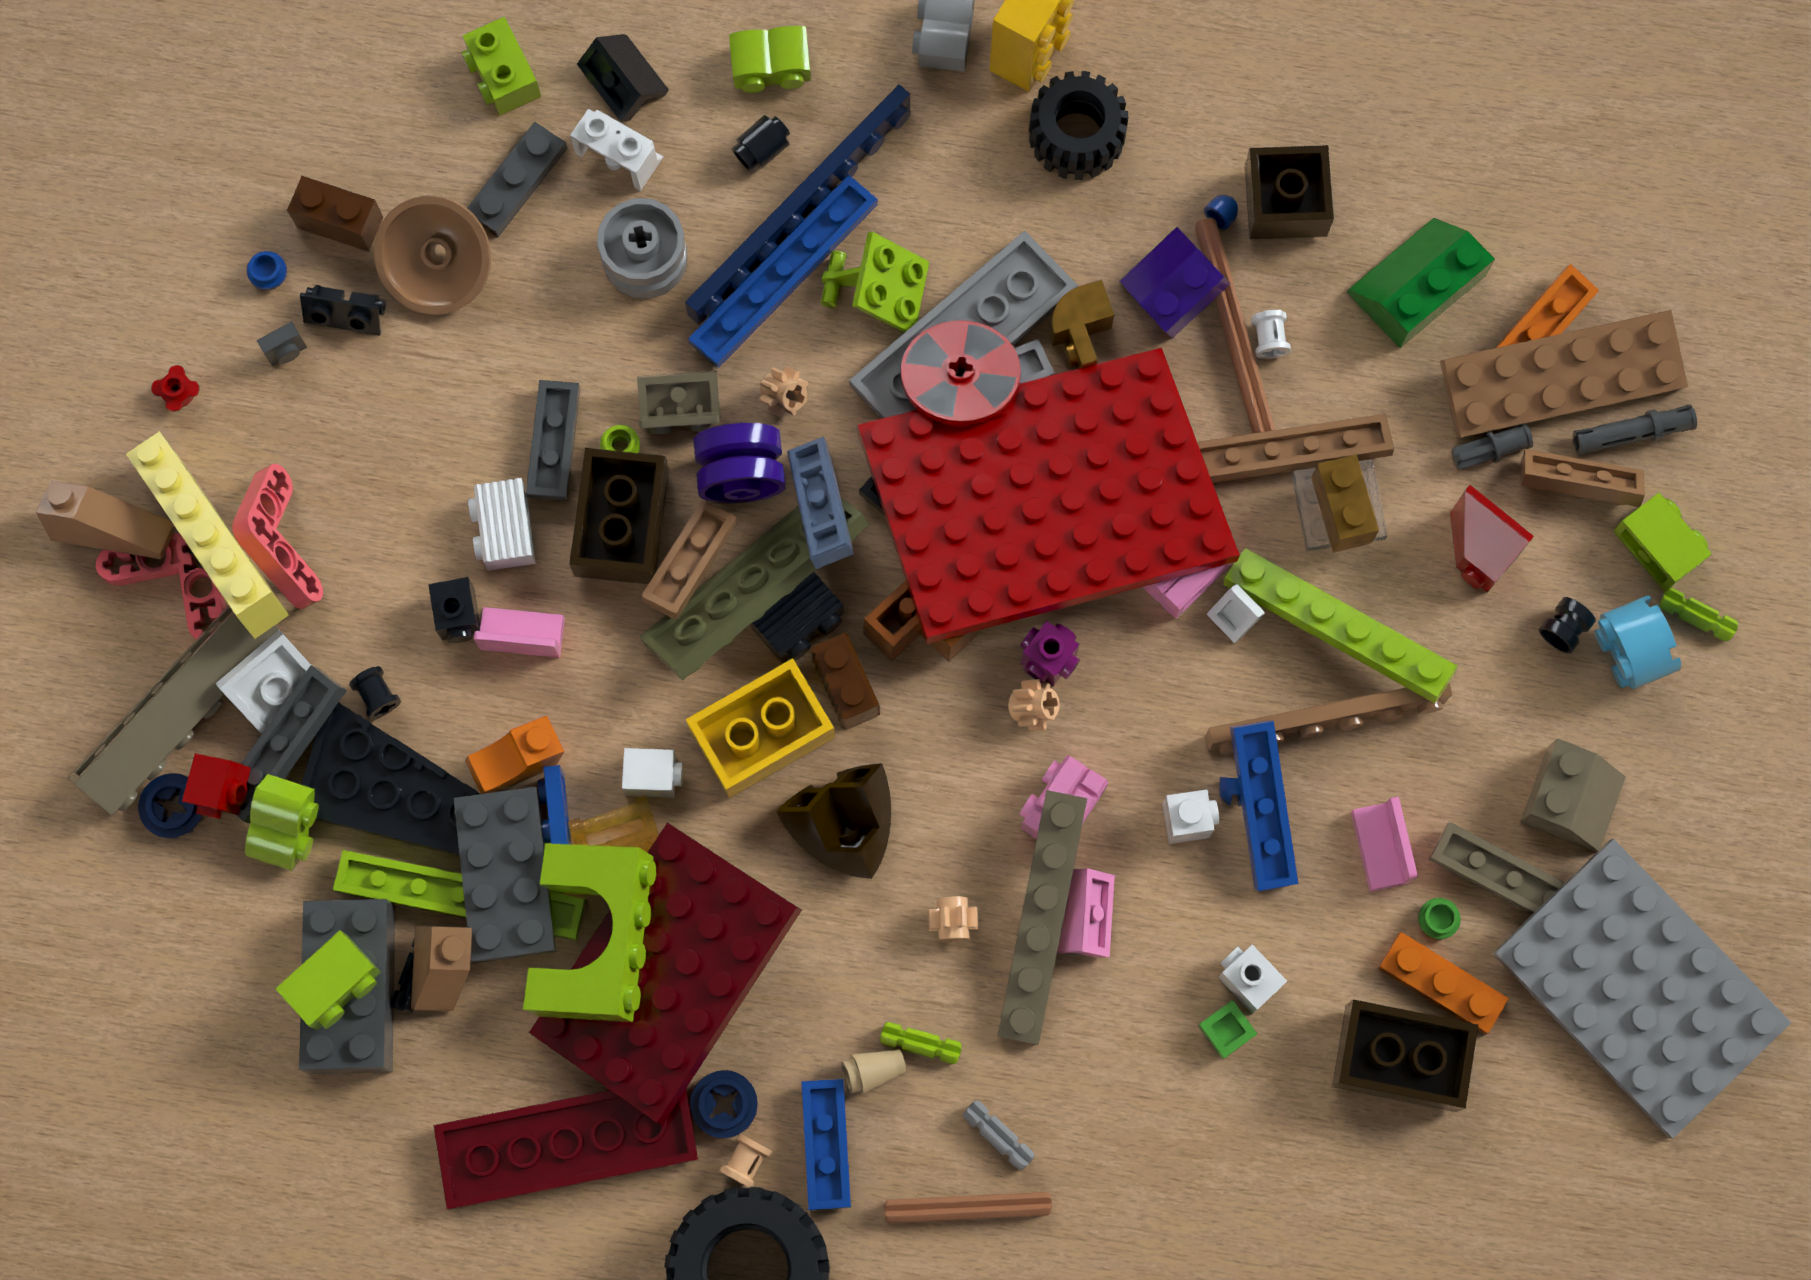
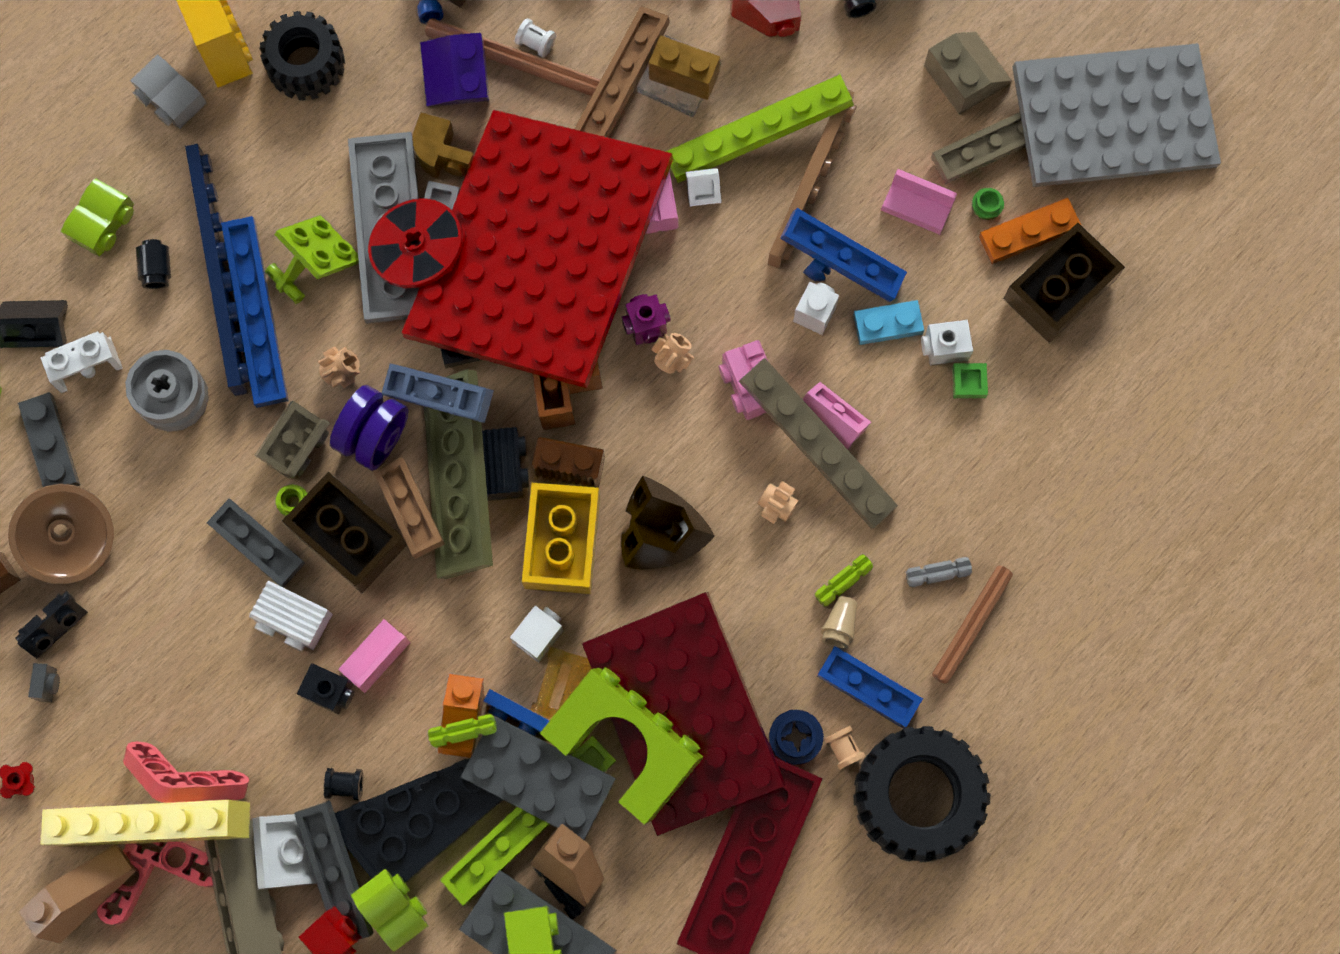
camera: 55 degrees left, 0 degrees up
(497, 767) = (462, 730): none -> lime axle
(1231, 902) = (888, 322): none -> medium azure plate

